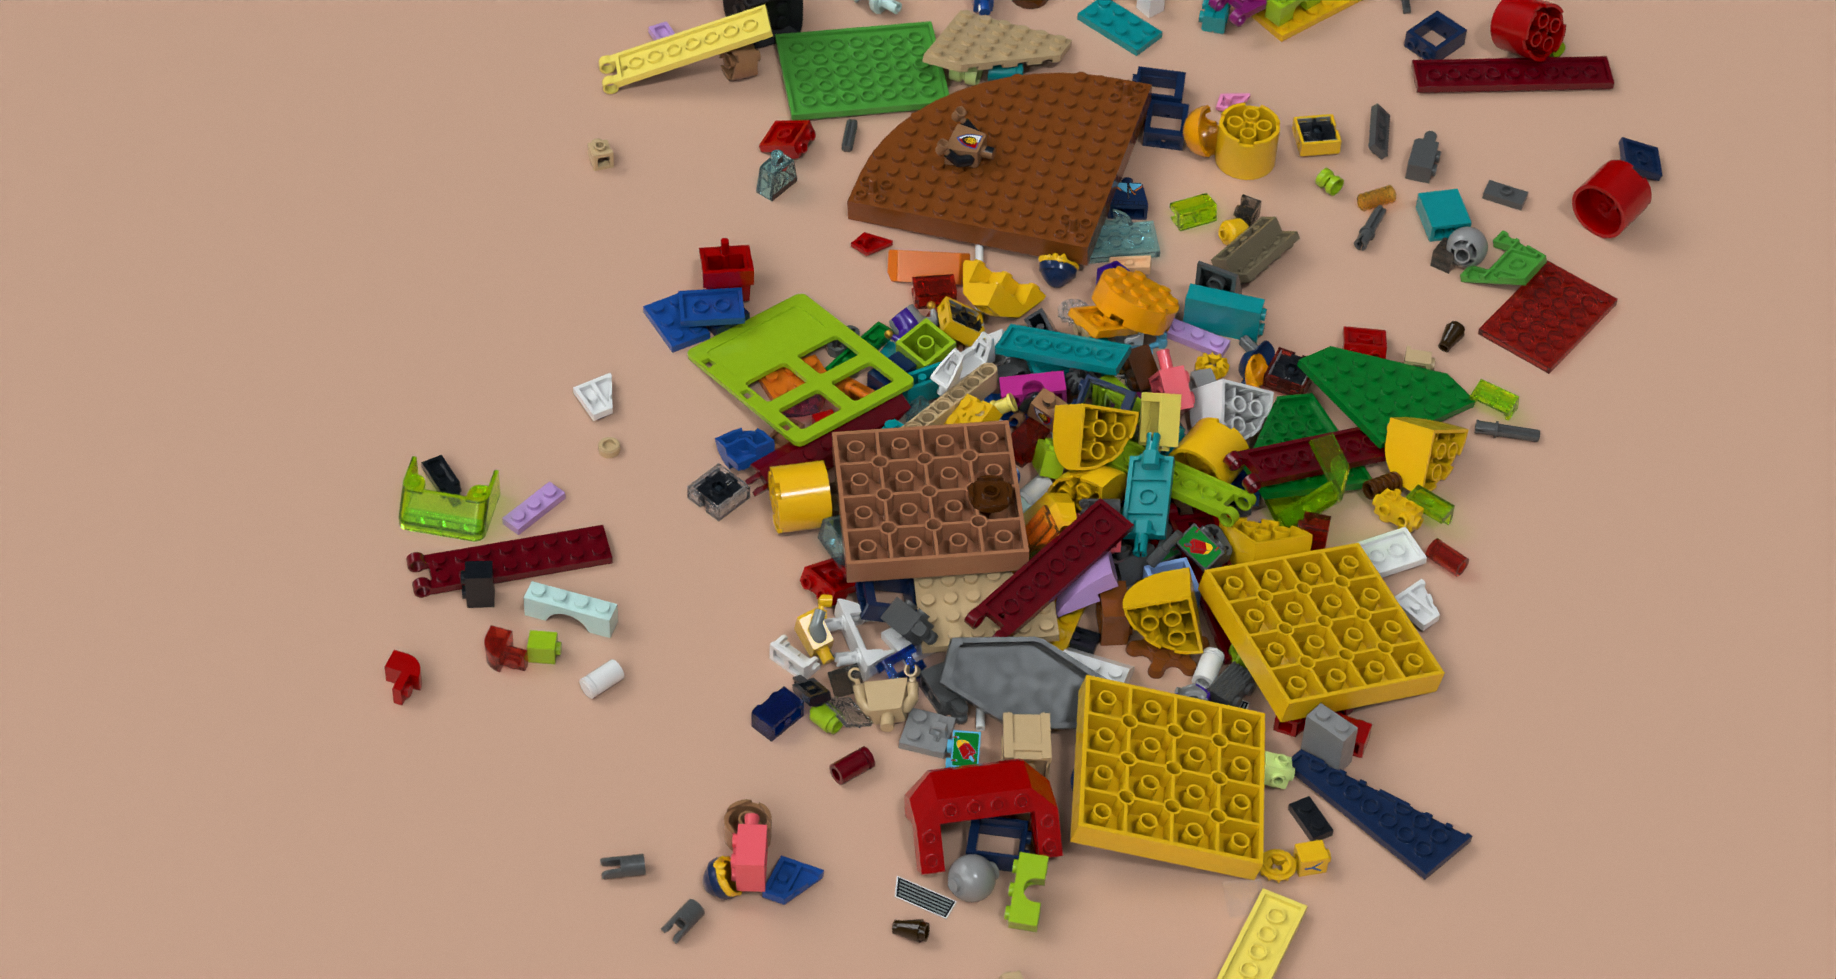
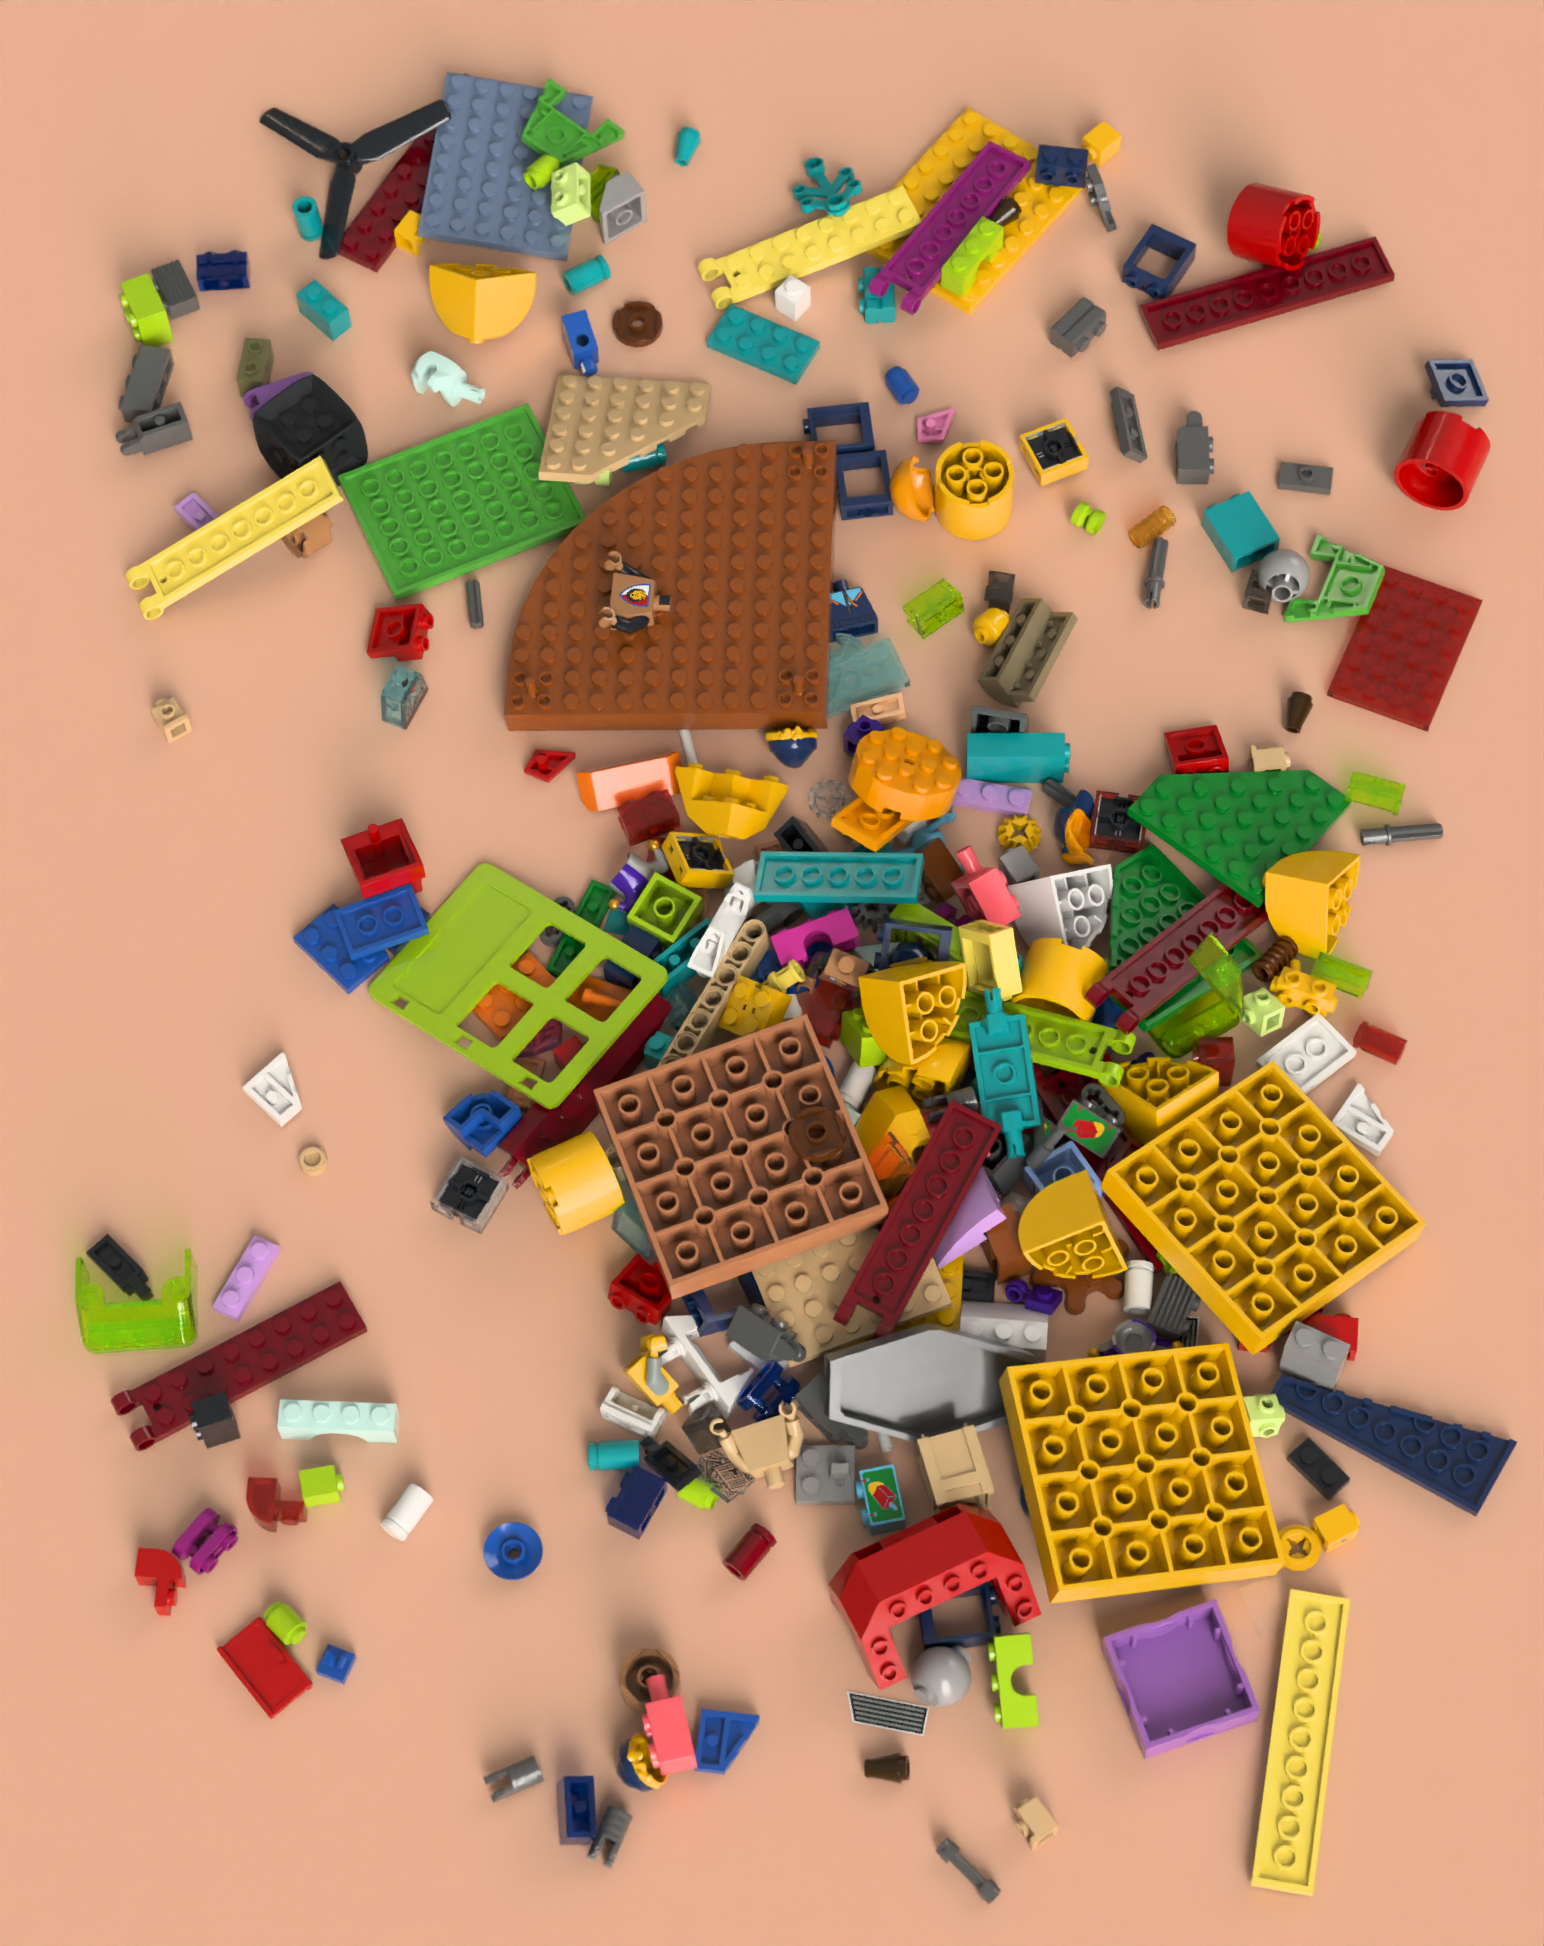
camera: 10 degrees left, 15 degrees up
(444, 661) = (206, 1557): none -> magenta brick
(457, 752) = (256, 1660): none -> red door
(486, 727) = (285, 1623): none -> lime brick
(514, 763) = (336, 1664): none -> blue tile
(663, 894) = (576, 1810): none -> clear blue brick
(673, 715) = (511, 1538): none -> blue dish
(769, 679) = (613, 1454): none -> teal piece
(1130, 657) = (1039, 1299): none -> dark purple plate
(1157, 925) = (1180, 1679): none -> medium lavender tile
(1215, 71) = (901, 385): none -> blue brick
(1360, 64) = (1078, 327): none -> dark grey brick
(1361, 515) = (1263, 1012): none -> yellowish green brick

